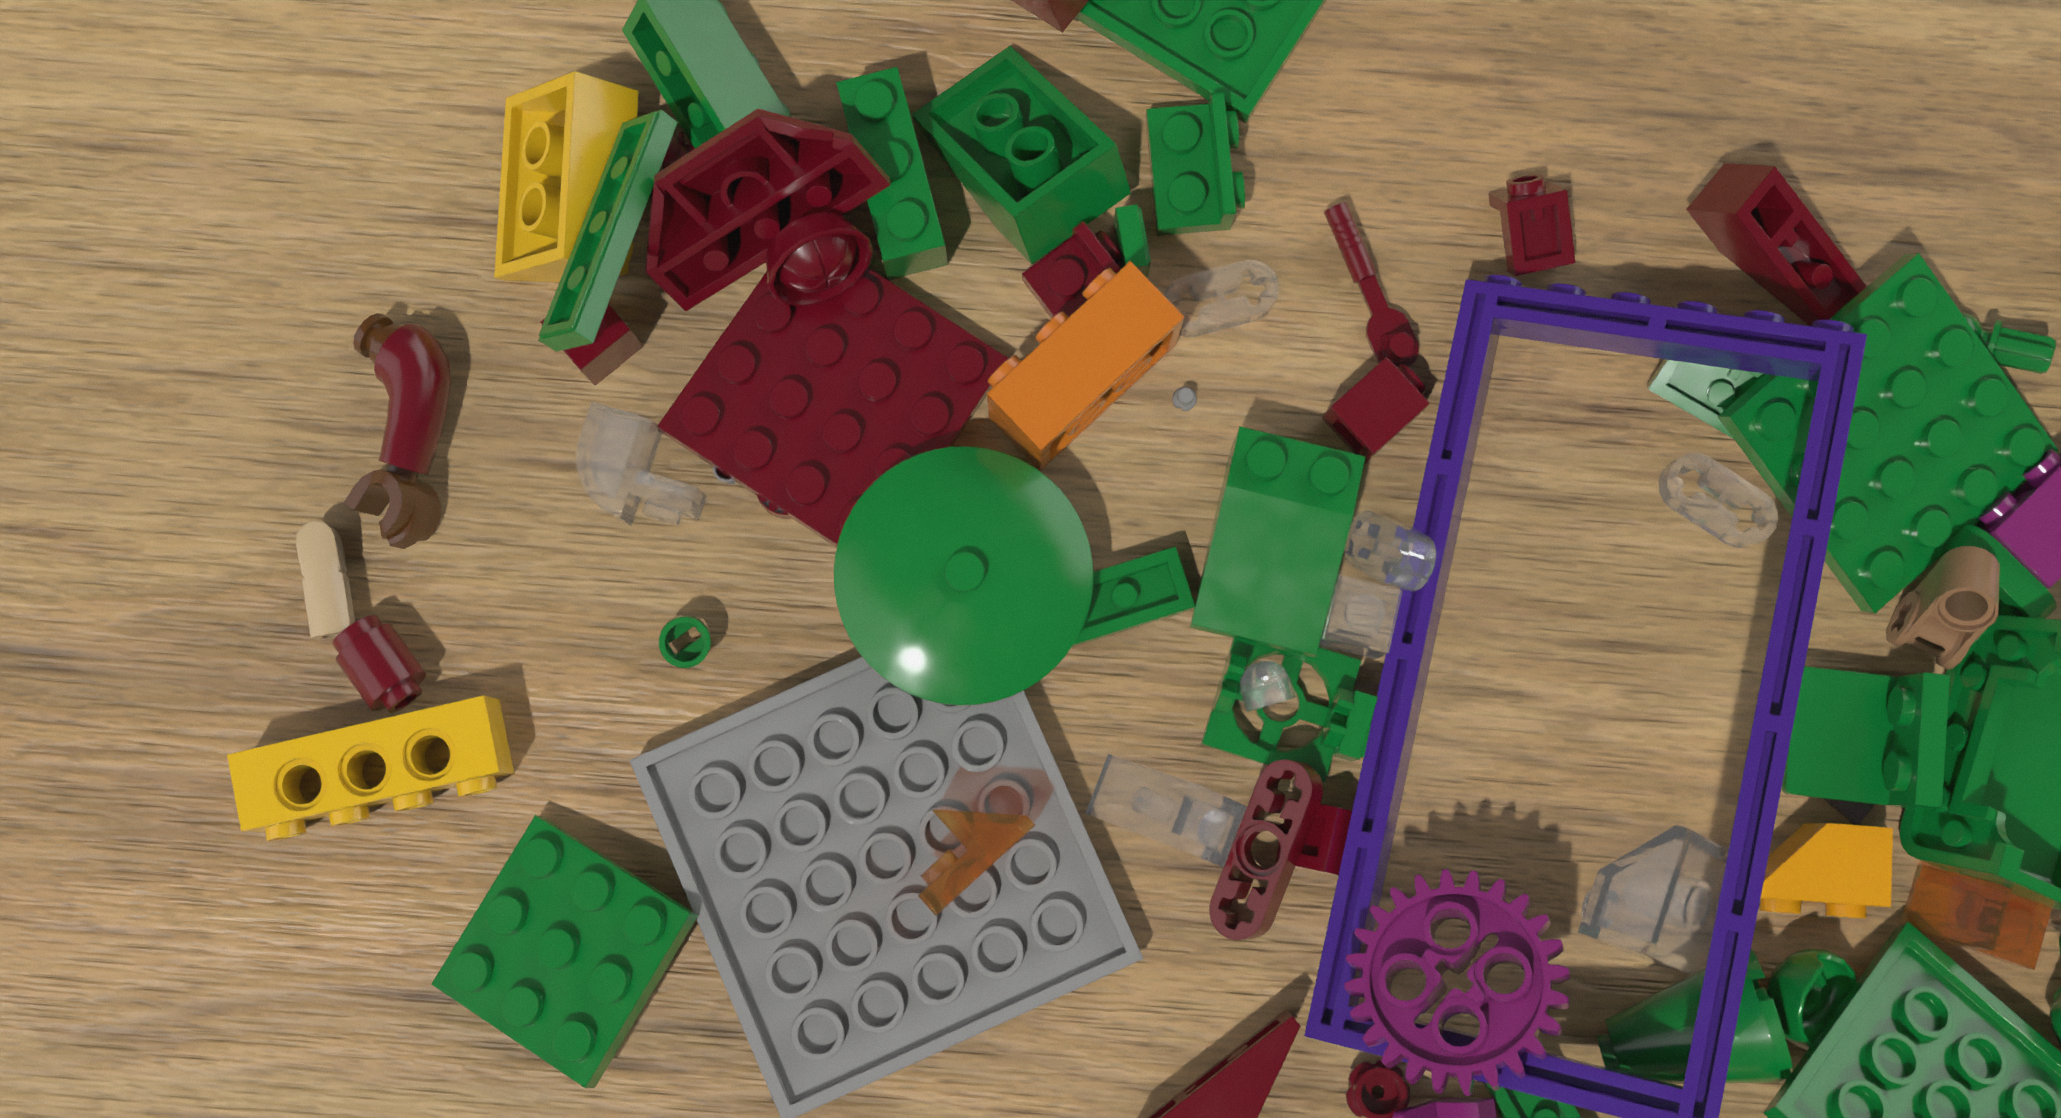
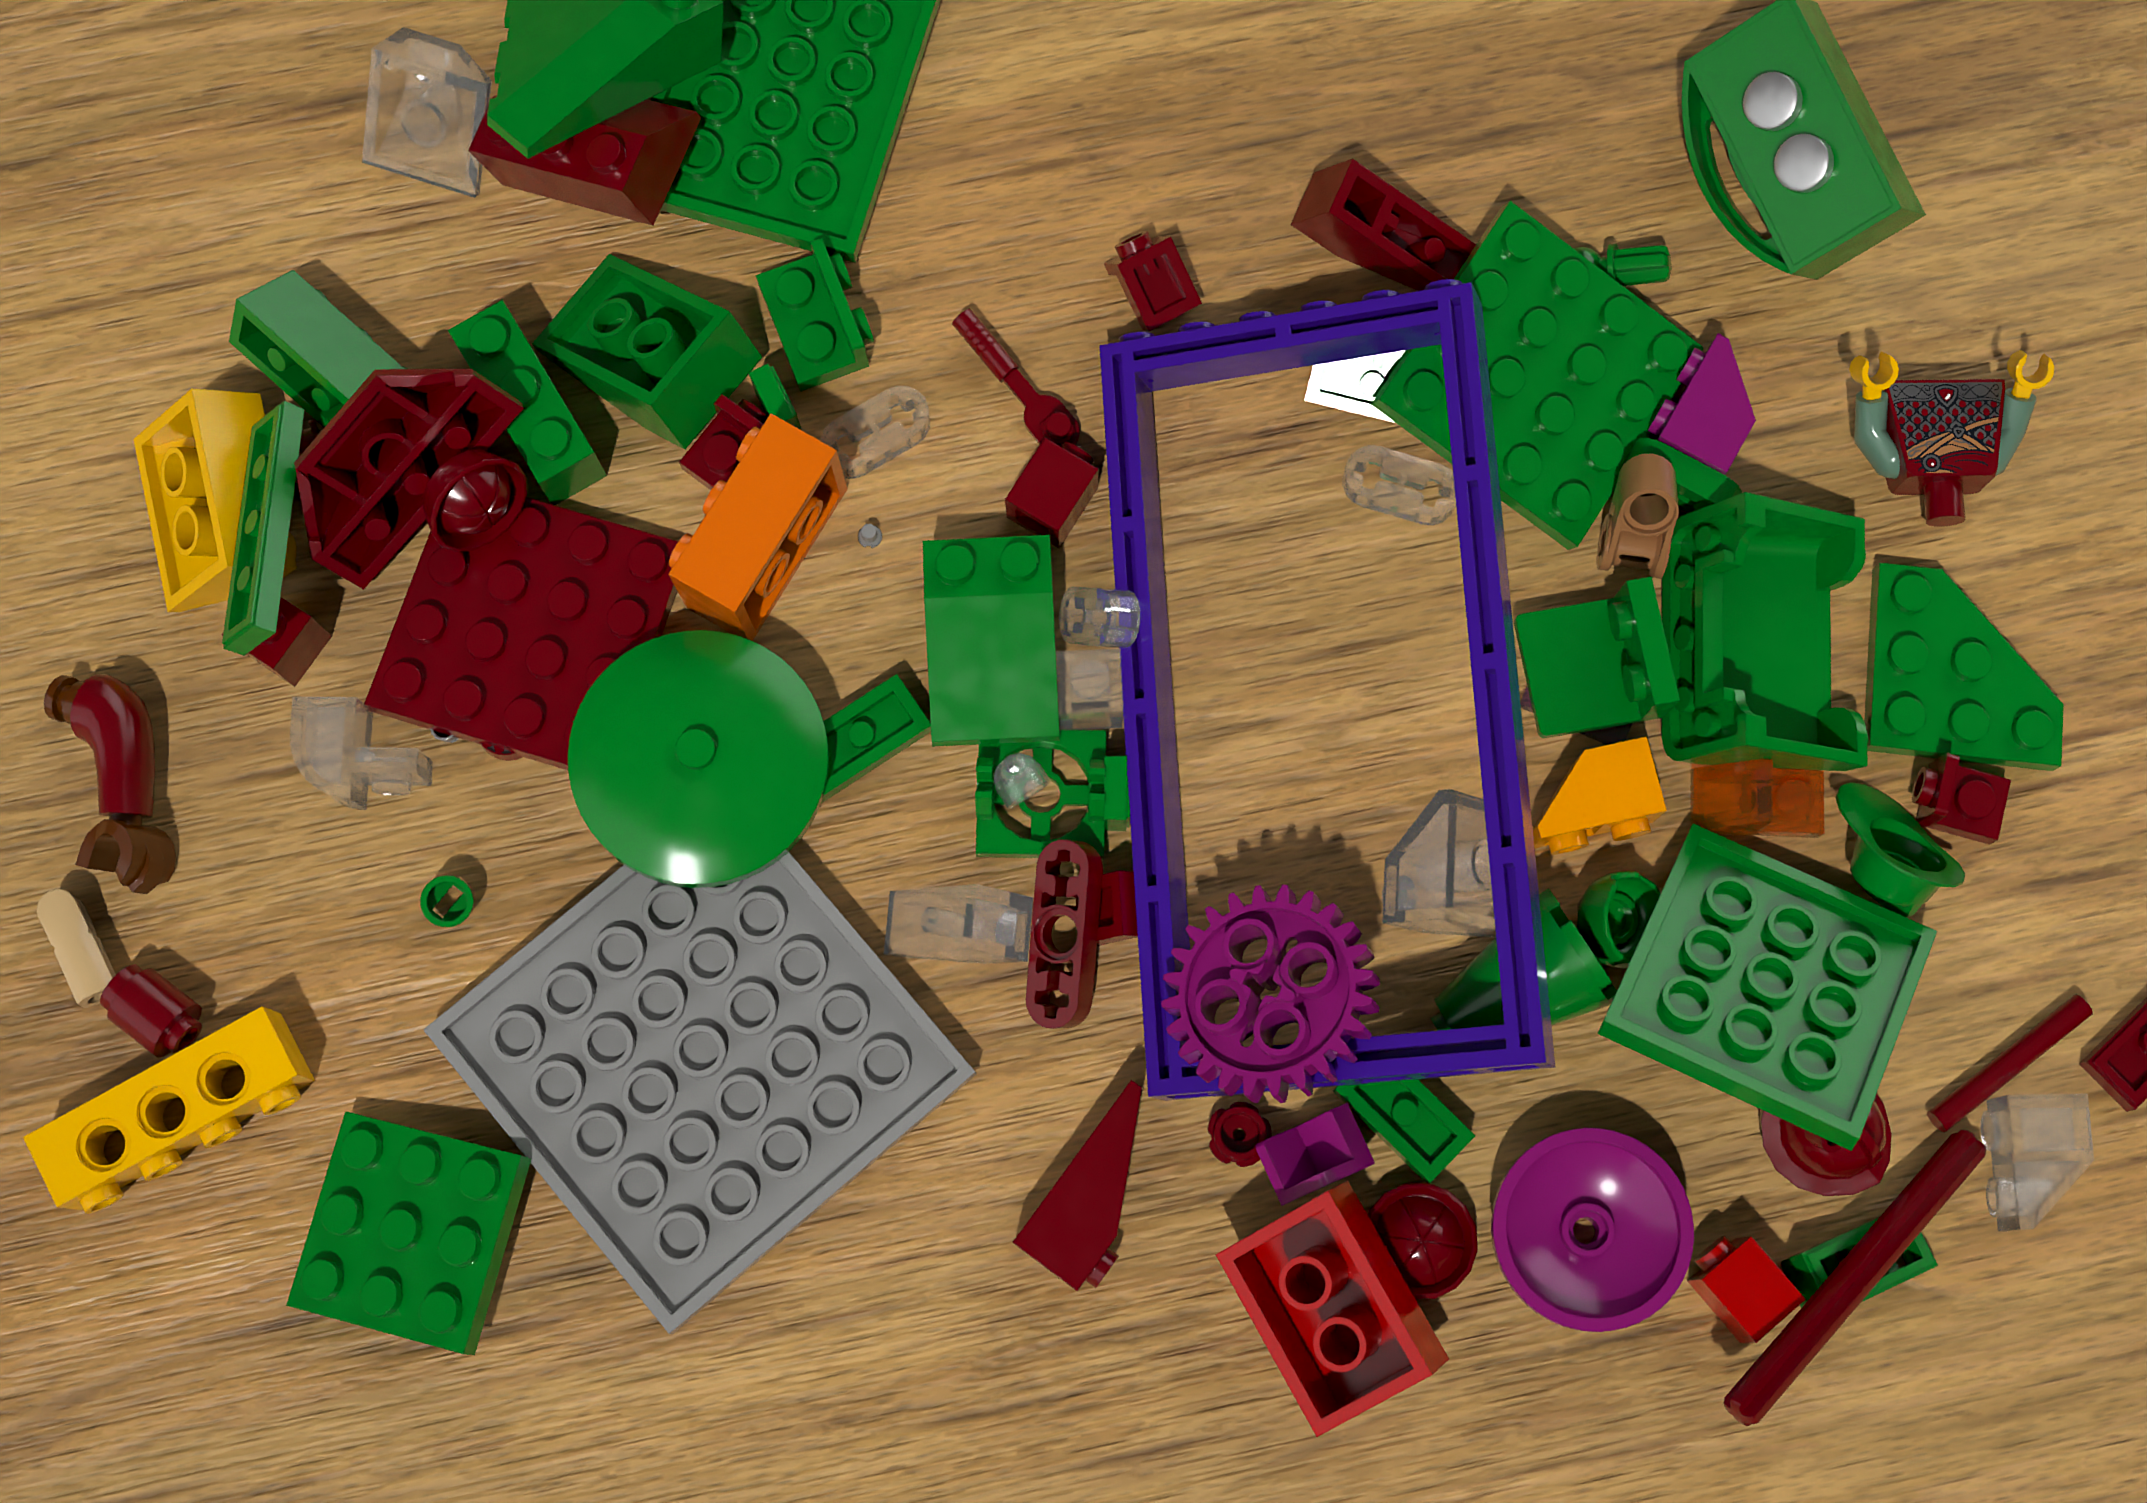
camera: 15 degrees left, 5 degrees down
(985, 838) = (790, 998): clear orange slope -> none

